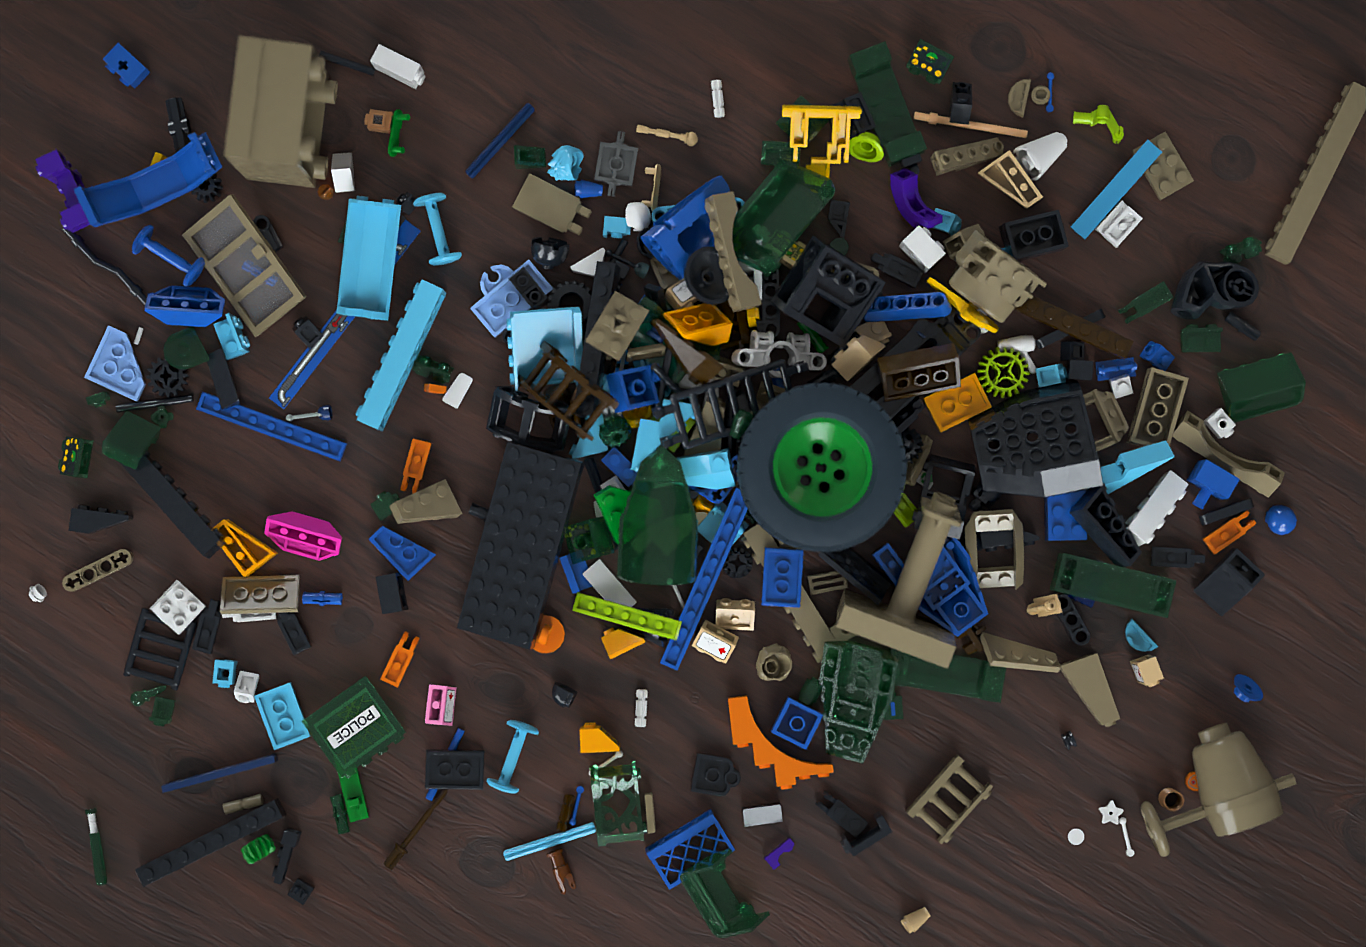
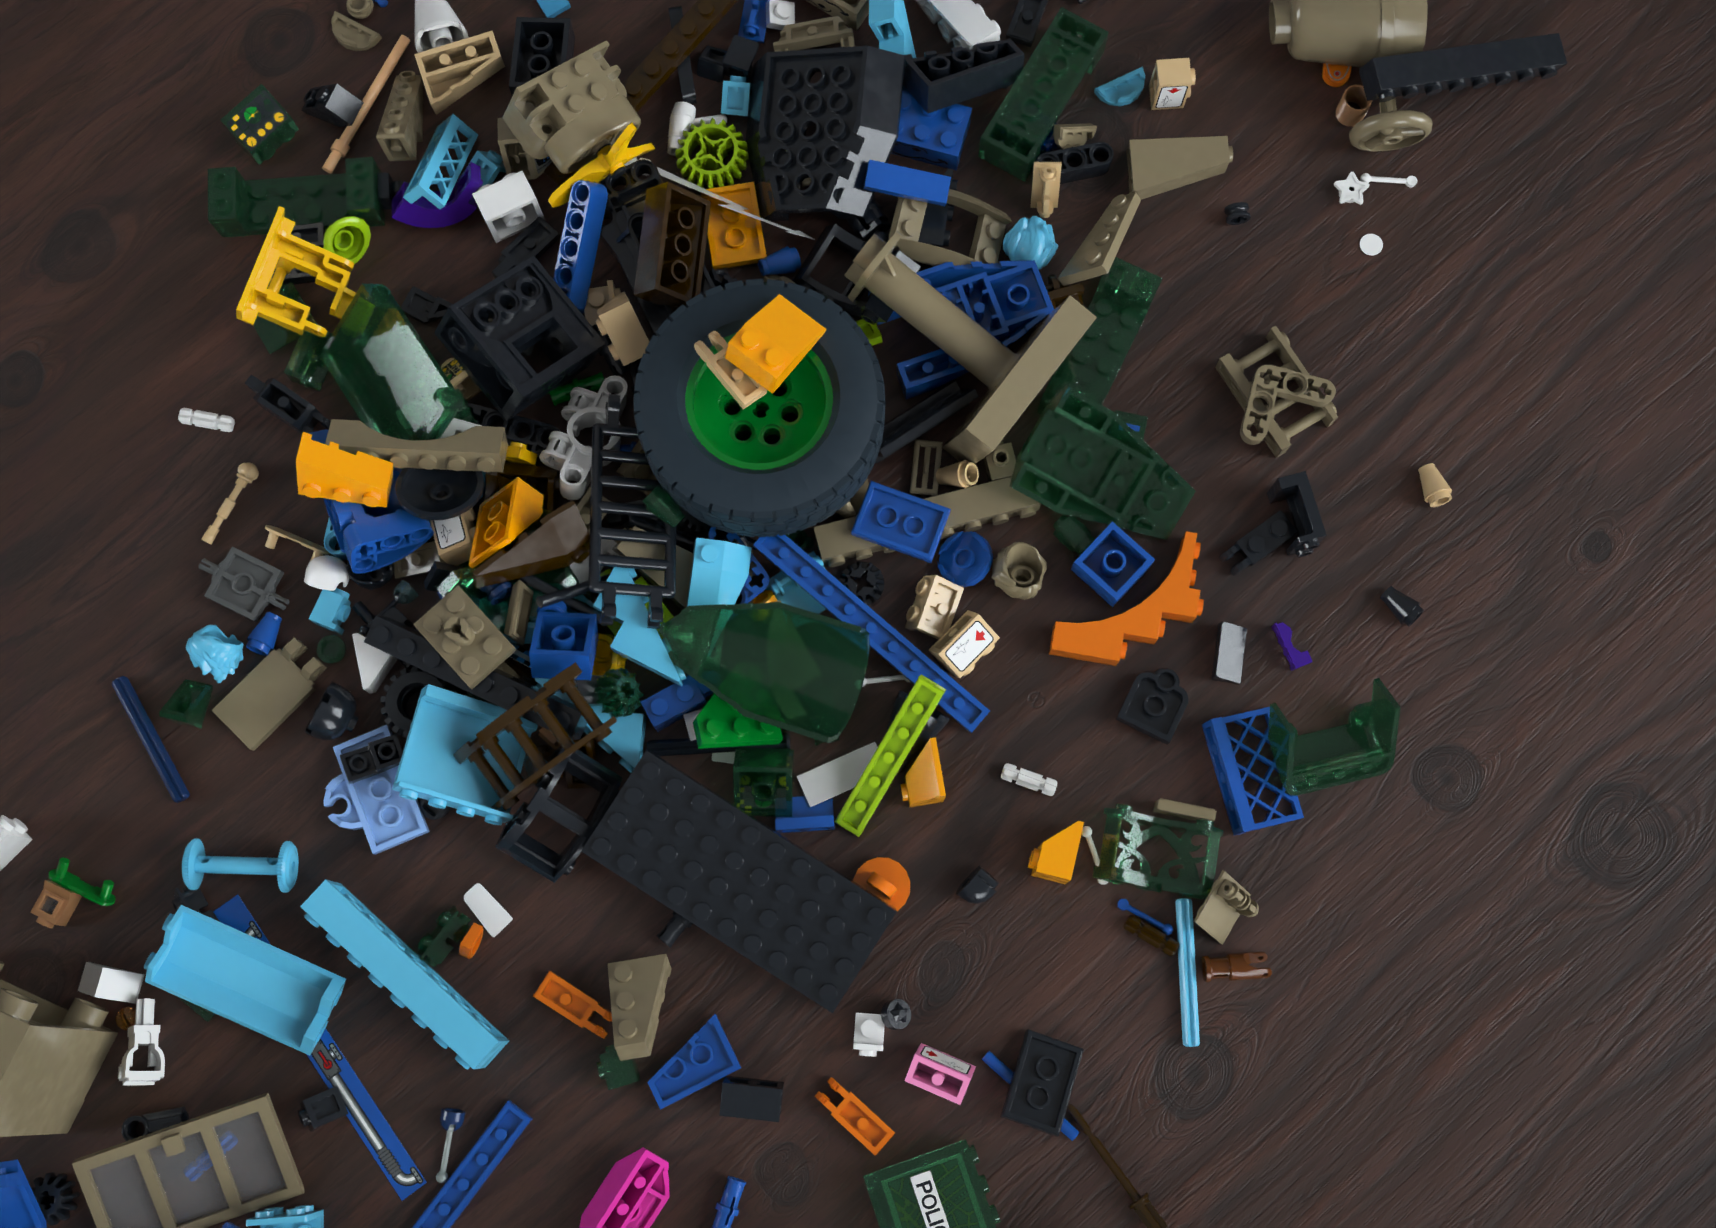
camera: 70 degrees left, 10 degrees down
(318, 205) = (143, 1034): none -> white piece
(452, 653) = (868, 1034): none -> white bracket
(469, 667) = (896, 1014): none -> black tile
(512, 757) = (1048, 988): medium azure hose -> none
(591, 234) = (331, 649): none -> clear green plate
(595, 853) = (1224, 906): none -> dark tan hinge
(696, 214) = (342, 476): none -> light orange wedge
(740, 151) = (286, 405): none -> black hinge
(772, 625) = (965, 558): none -> blue tile
(826, 919) = (1402, 606): none -> black cone
(827, 606) = (960, 474): none -> tan cone
(832, 445) = (738, 384): none -> tan hinge
(858, 468) = (773, 342): none -> light orange slope
(939, 442) = (780, 262): none -> blue cone
(942, 189) = (438, 155): none -> medium azure fence
(942, 795) = (1270, 391): none -> dark tan beam
(968, 401) = (734, 206): none -> white sticker
(1002, 606) = (1031, 241): none -> medium azure hair
(1013, 513) = (907, 183): none -> blue tile
(1089, 613) = (1073, 134): none -> dark tan tile
(1217, 867) = (1462, 67): none -> black brick

